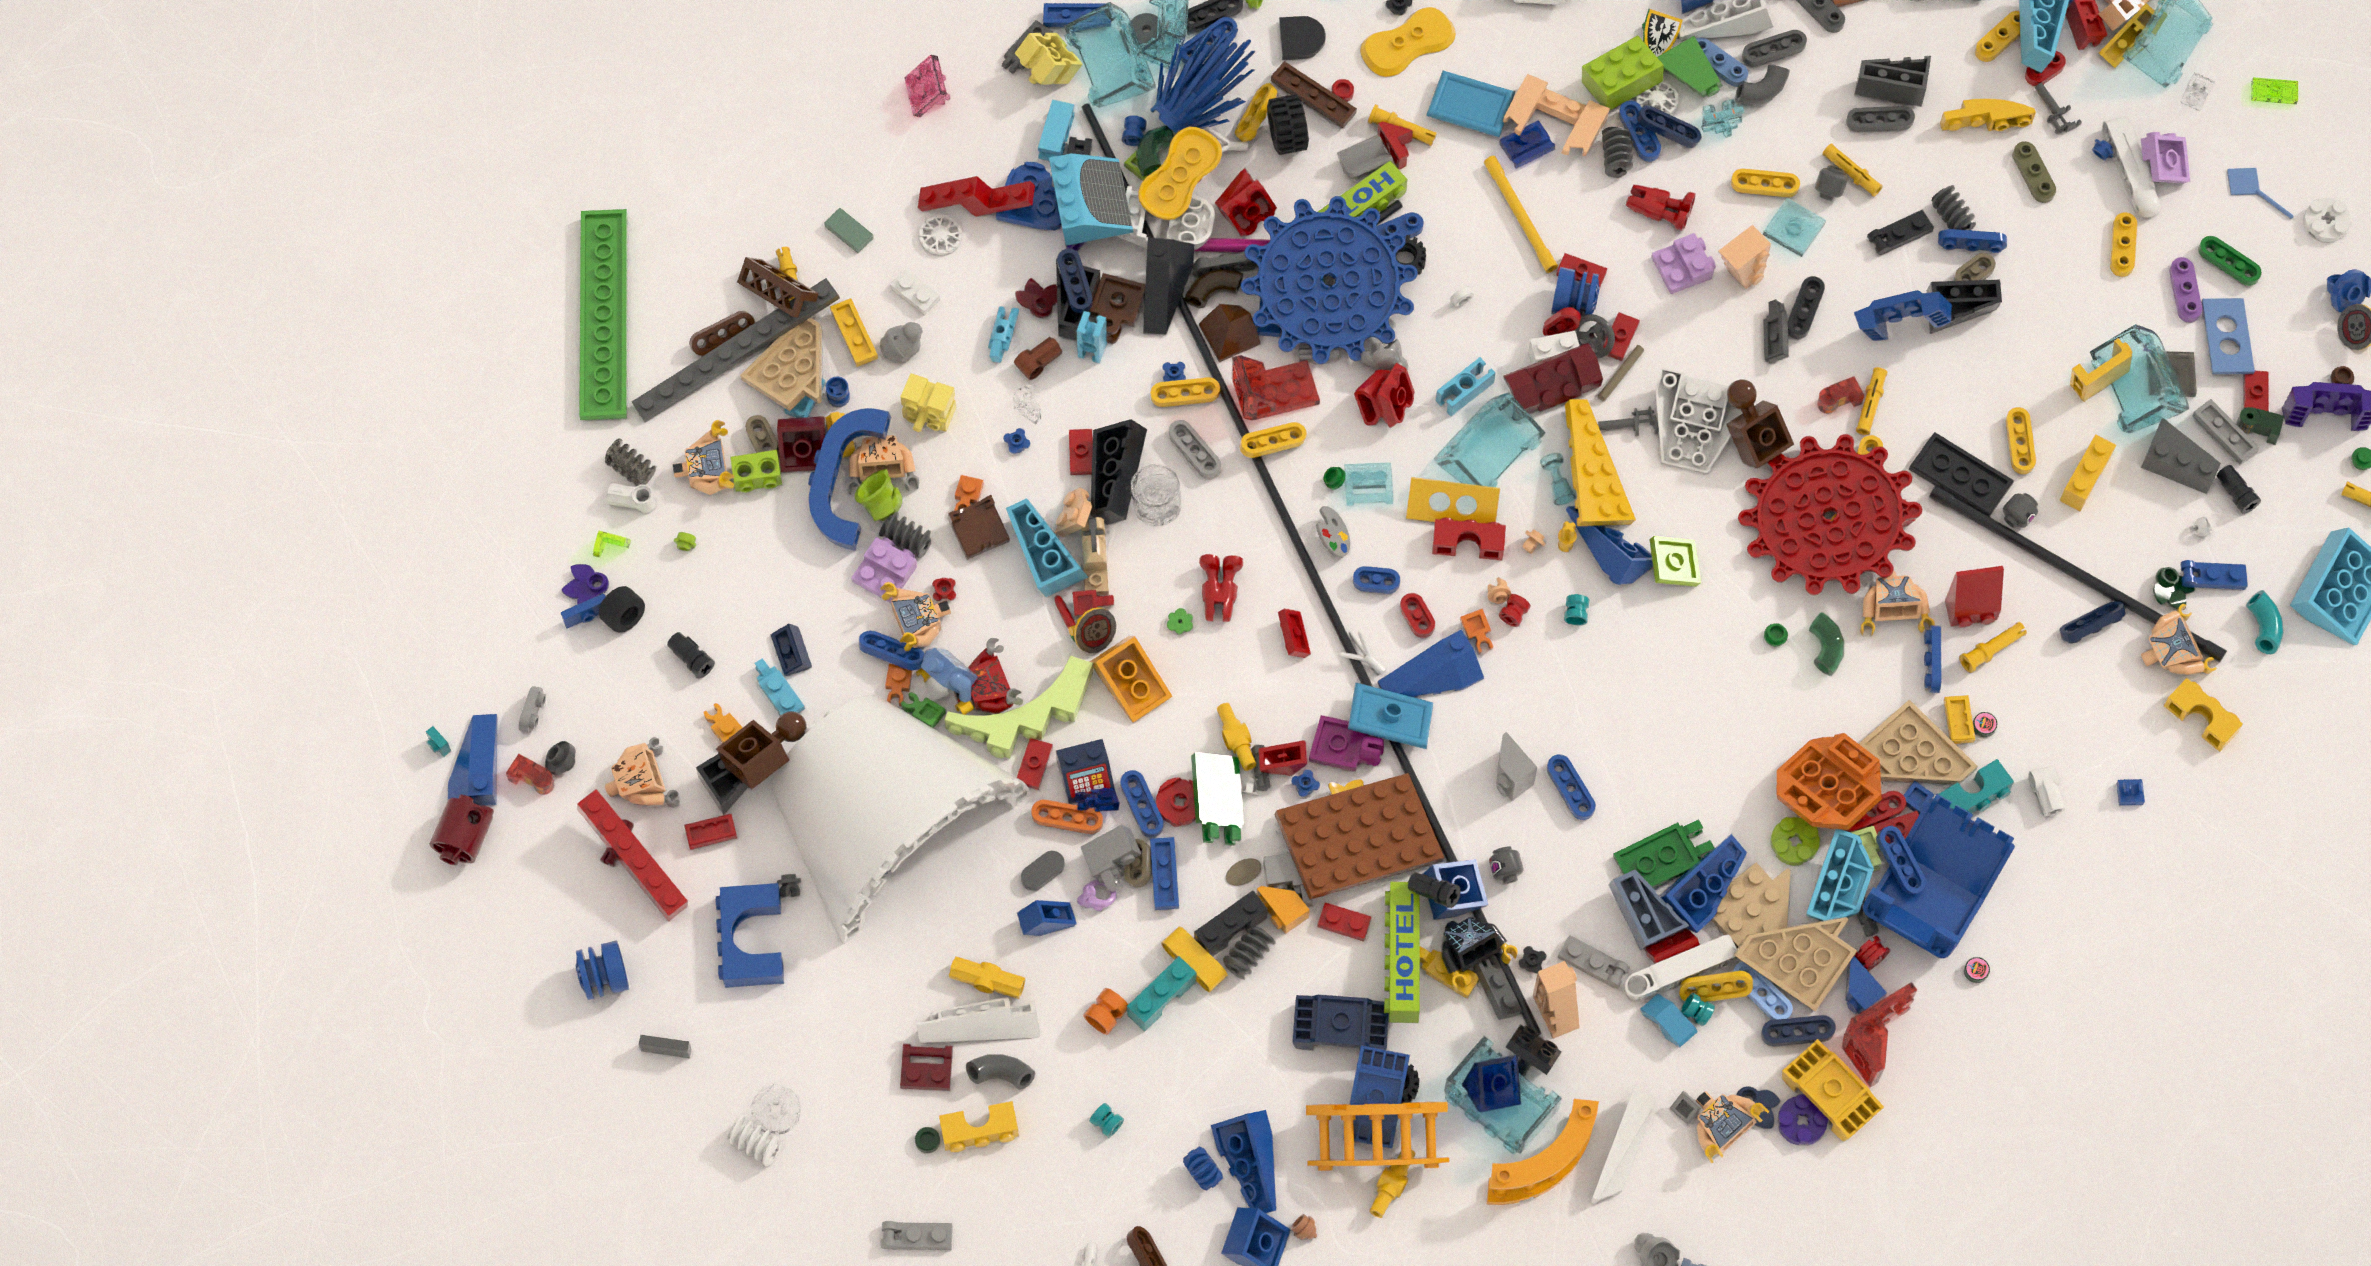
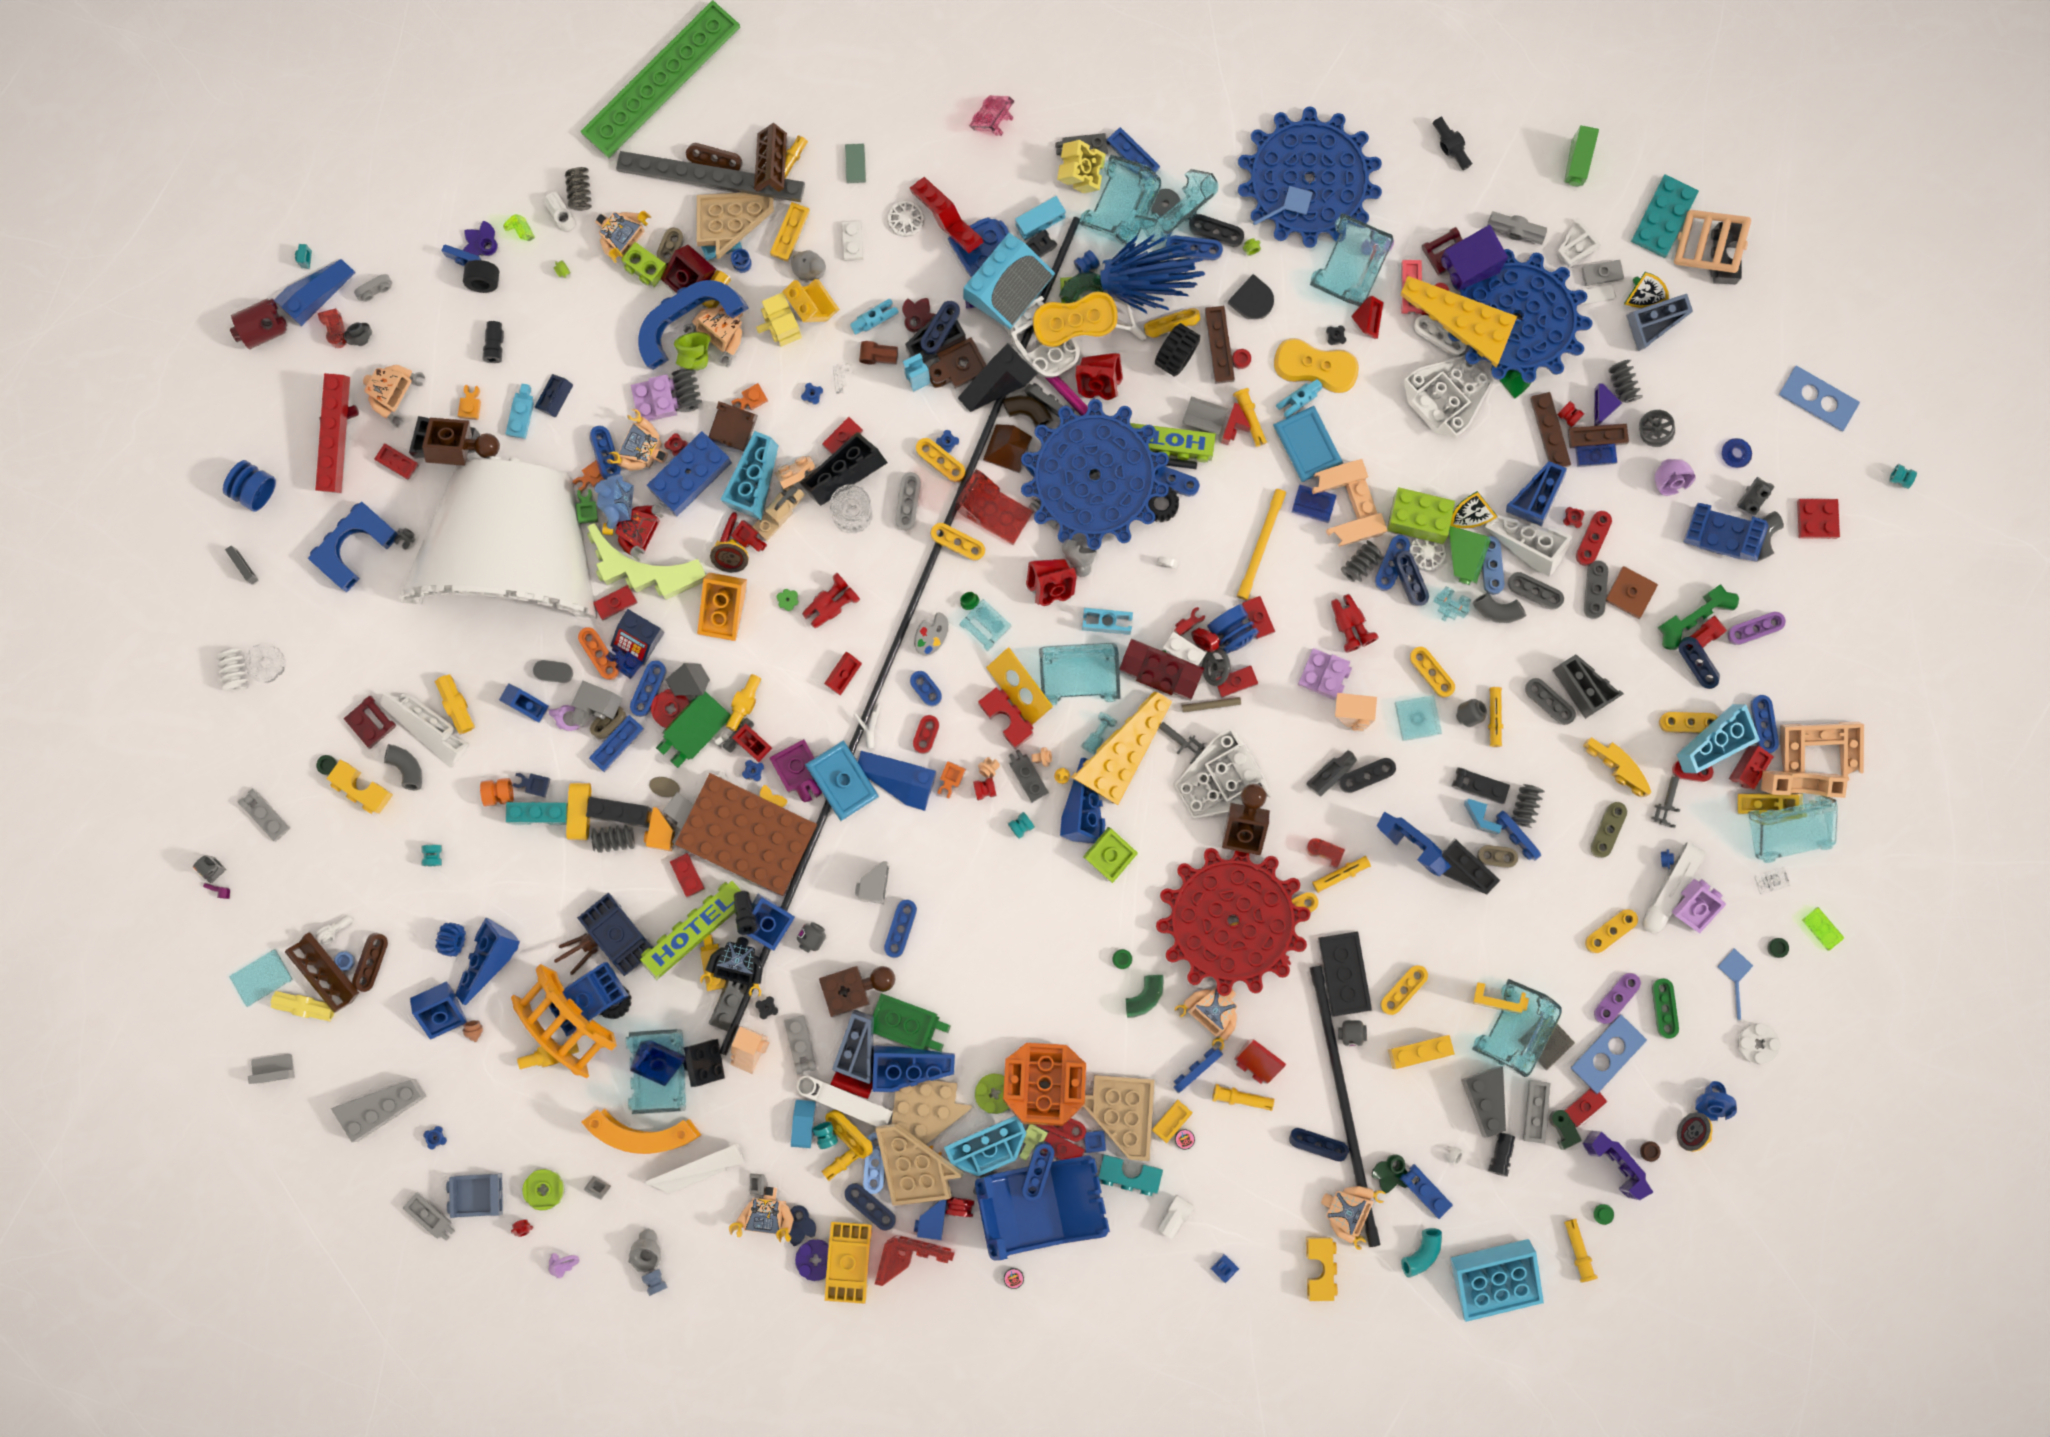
camera: 45 degrees right, 15 degrees up
(938, 363) = (811, 301): none -> yellow panel
(984, 598) = (689, 473): none -> blue piece
(1131, 974) = (535, 785): none -> dark blue plate
(1171, 762) = (688, 680): none -> dark grey slope
(1323, 1058) = (586, 942): none -> reddish brown plant
(1424, 75) = (1300, 397): none -> medium azure hinge
(1531, 331) = (1185, 625): none -> red plate
(1537, 569) = (1028, 776): none -> dark grey hinge
(1557, 1249) = (597, 1188): none -> light grey slope
(1588, 866) = (881, 979): none -> reddish brown brick
(1735, 1022) = (840, 1163): none -> yellow pin
(1921, 253) = (1477, 811): none -> dark azure slope
(2258, 136) = (1778, 947): none -> dark green tile

